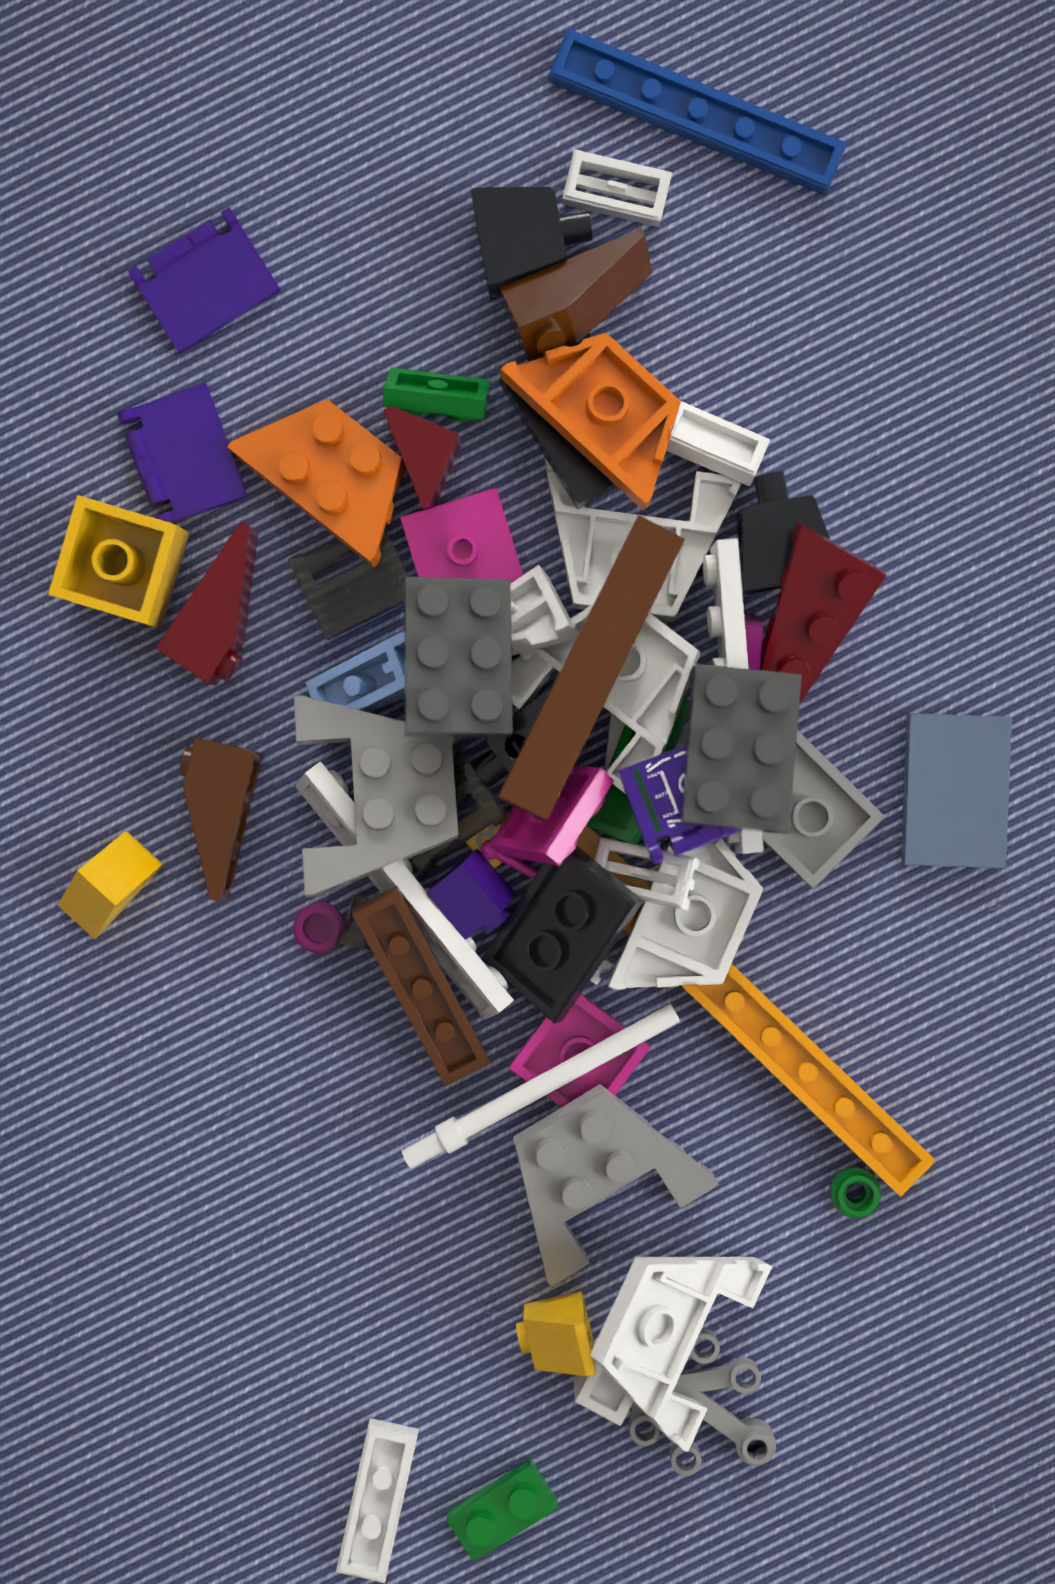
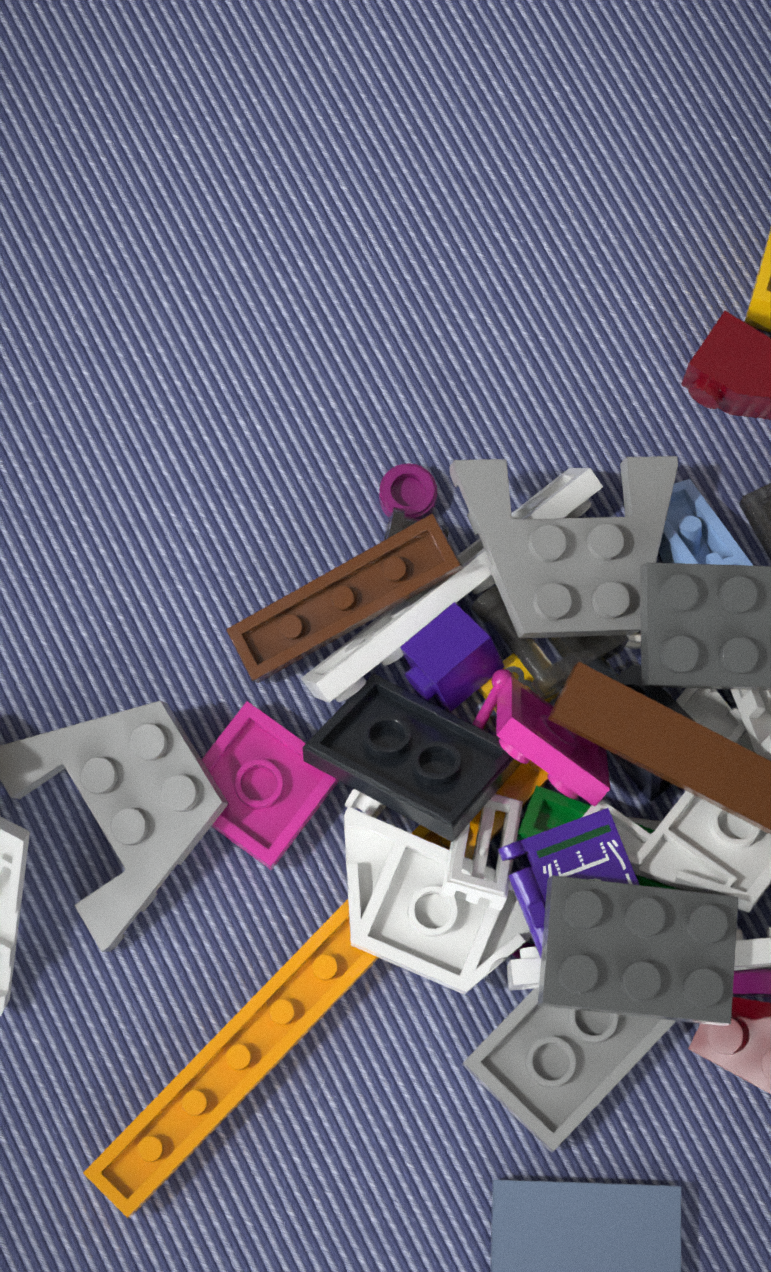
camera: 85 degrees right, 15 degrees down
(108, 883) = (456, 268): yellow slope -> none
(219, 800) = (552, 383): reddish brown slope -> none
(454, 1133) = (173, 636): white bar -> none
(862, 1205) = (67, 1121): green plate -> none

